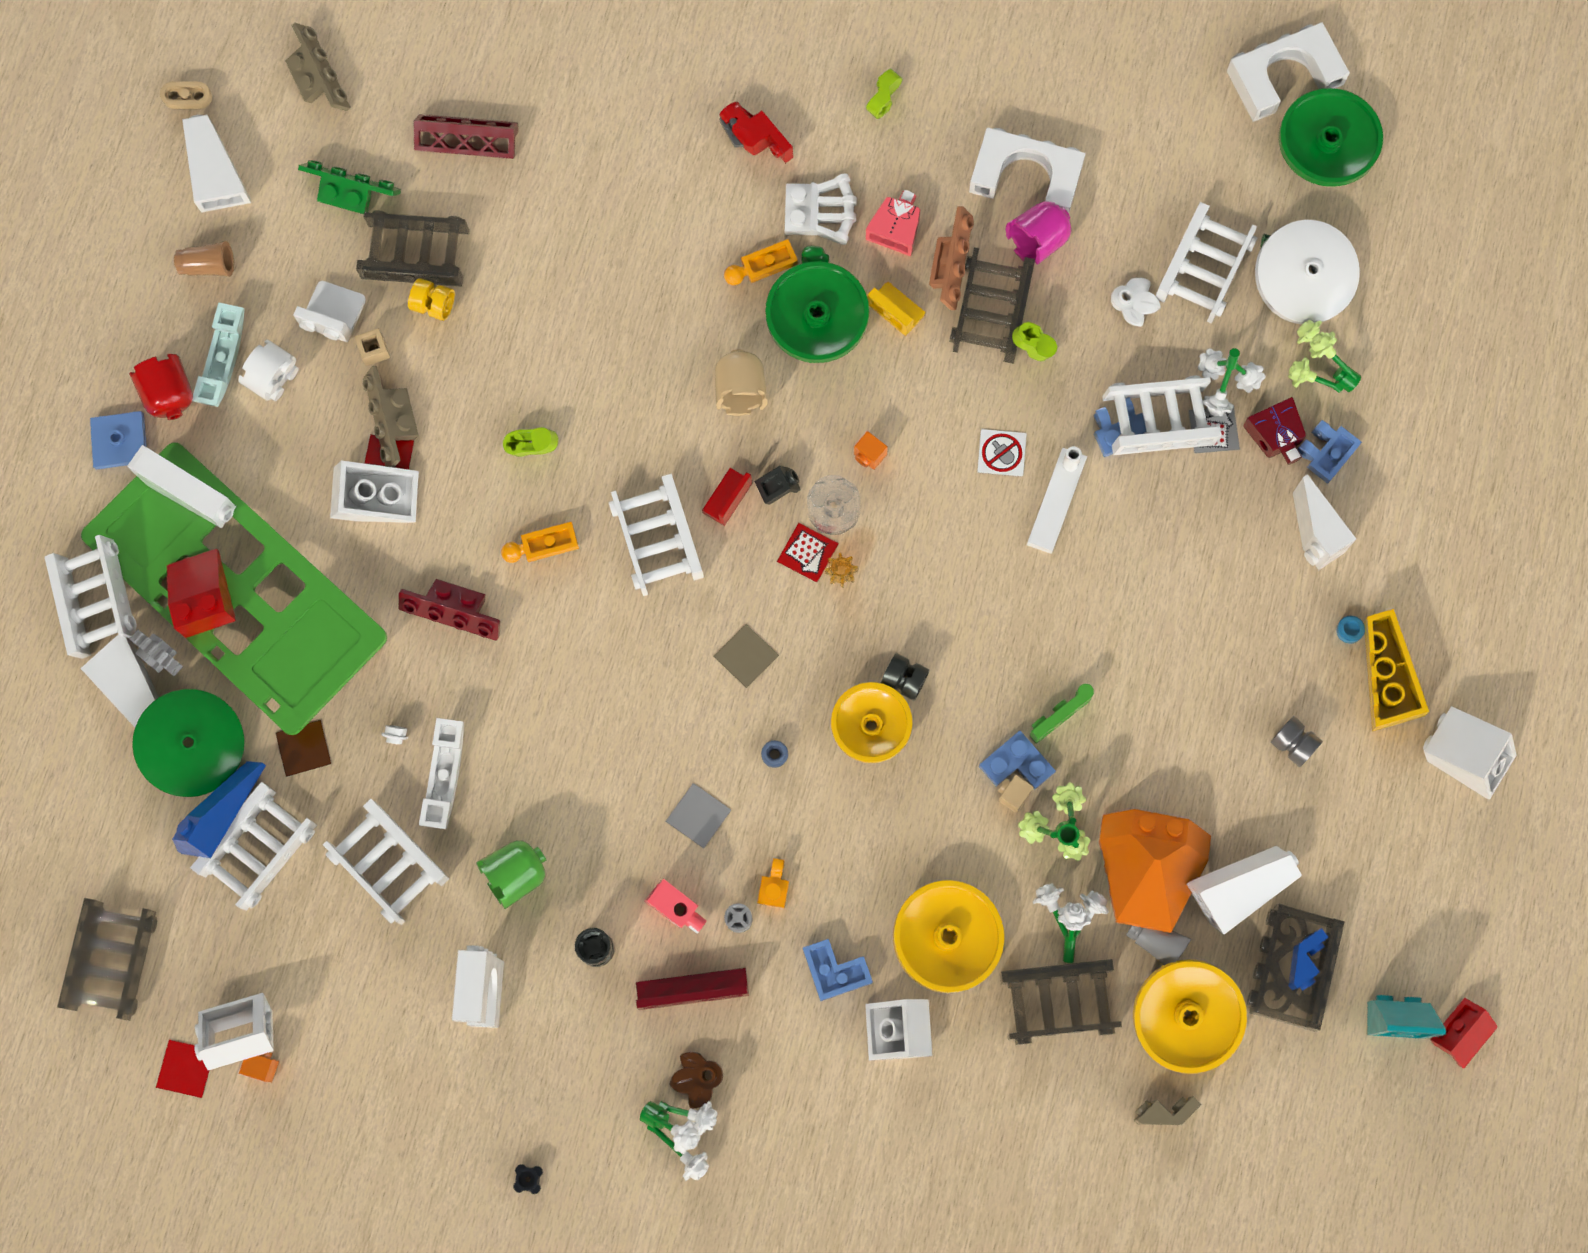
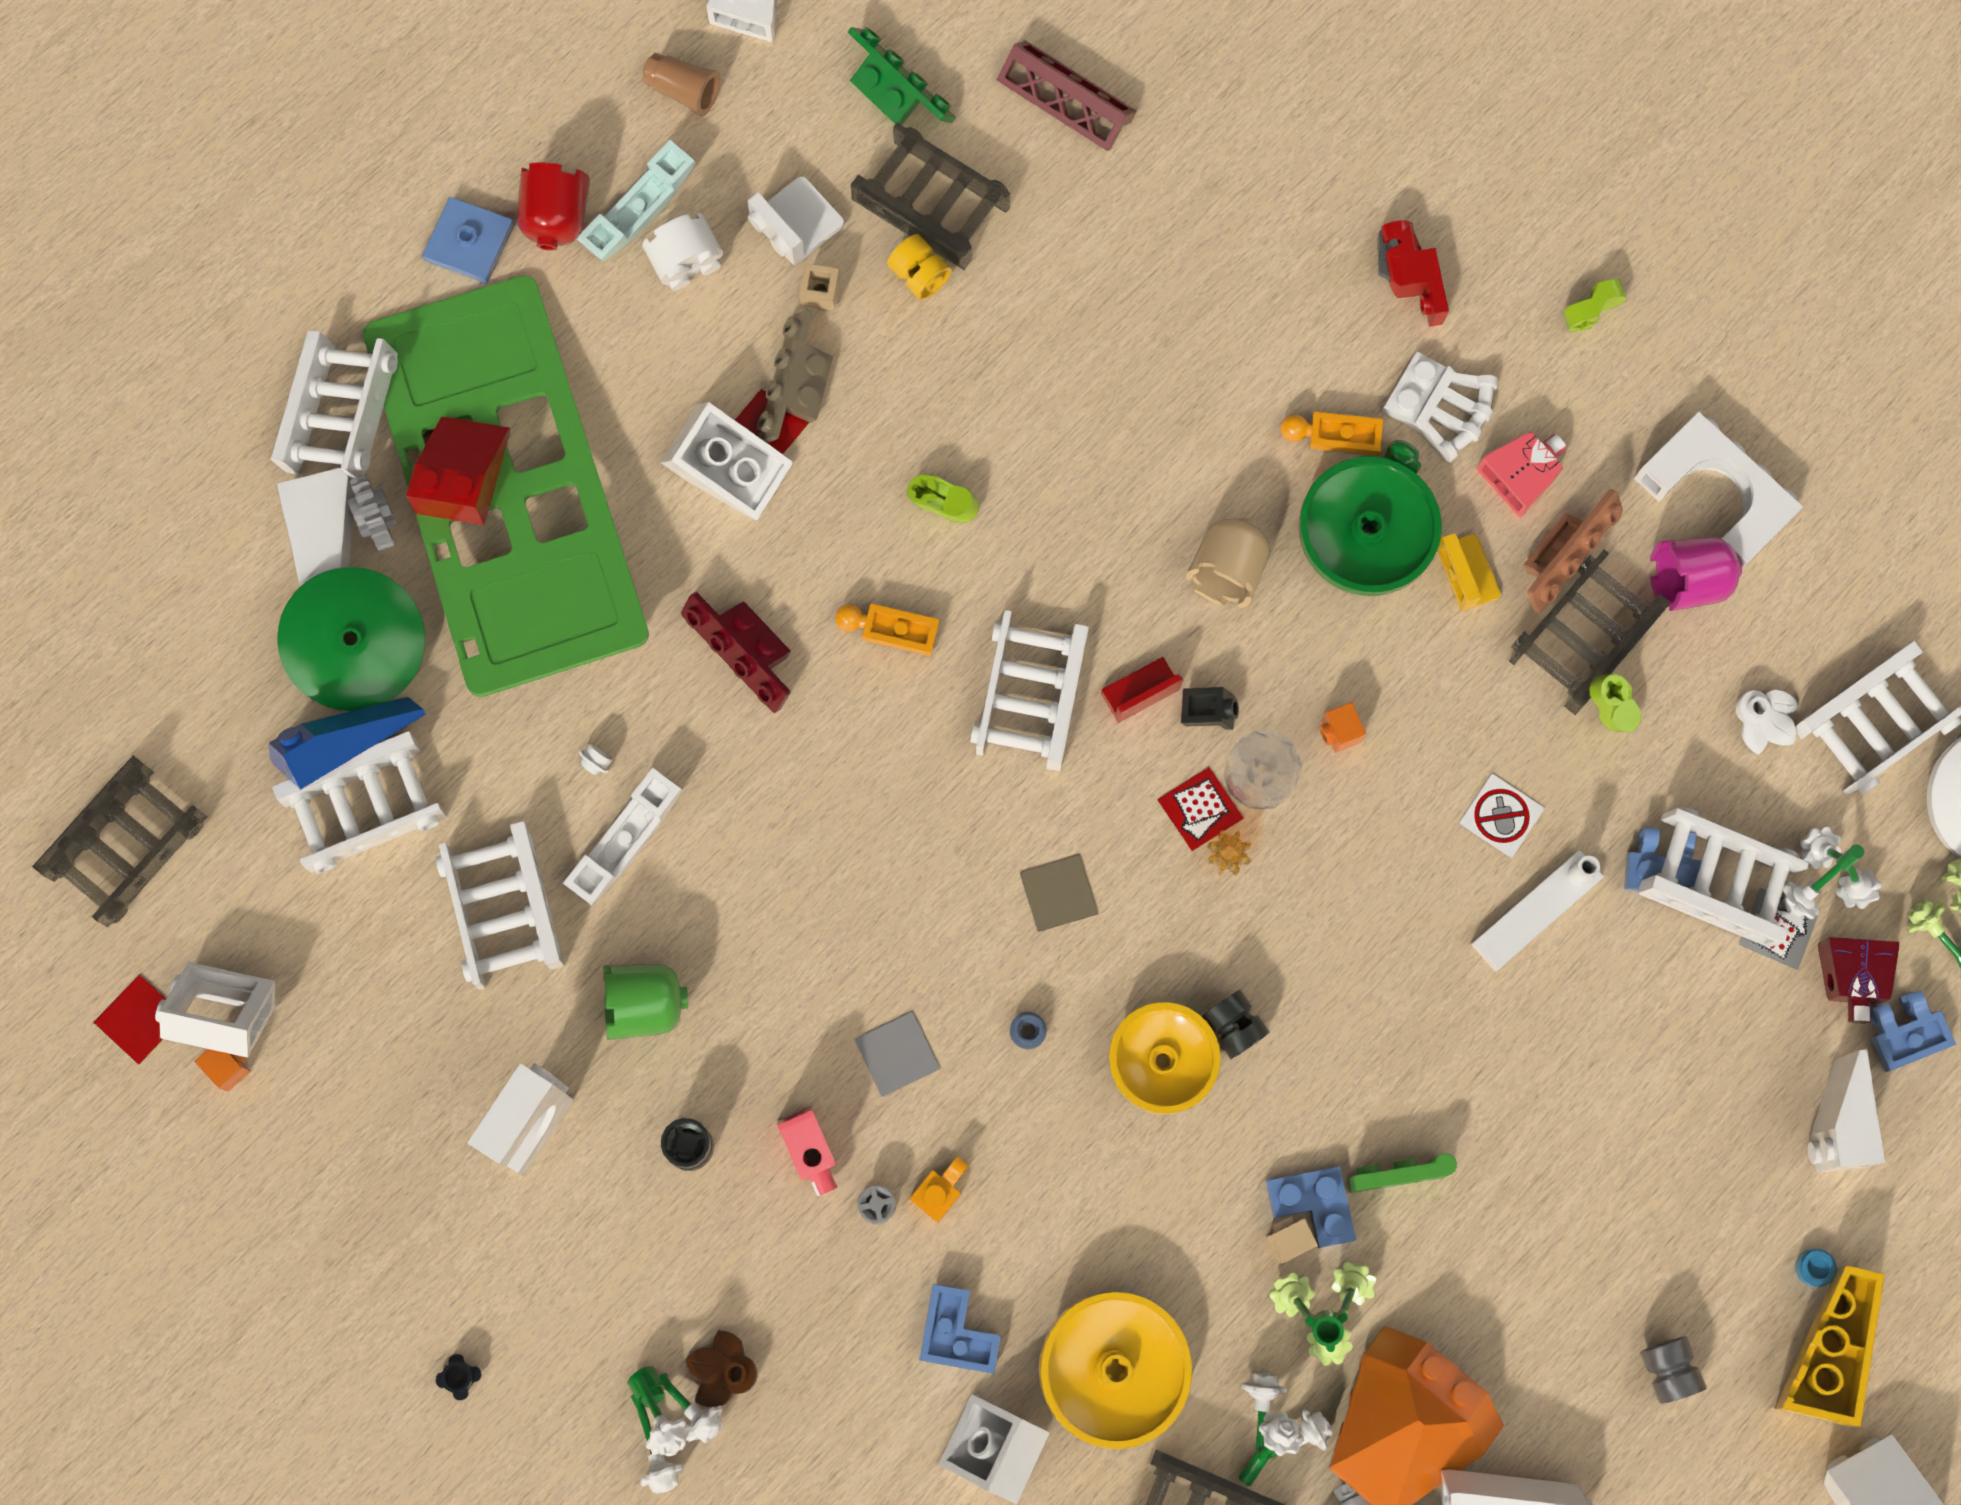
camera: 20 degrees right, 0 degrees up
(181, 487) = (507, 333): white slope -> none
(303, 750) = (480, 720): reddish brown sticker -> none
(692, 989) = (775, 1258): dark red fence -> none

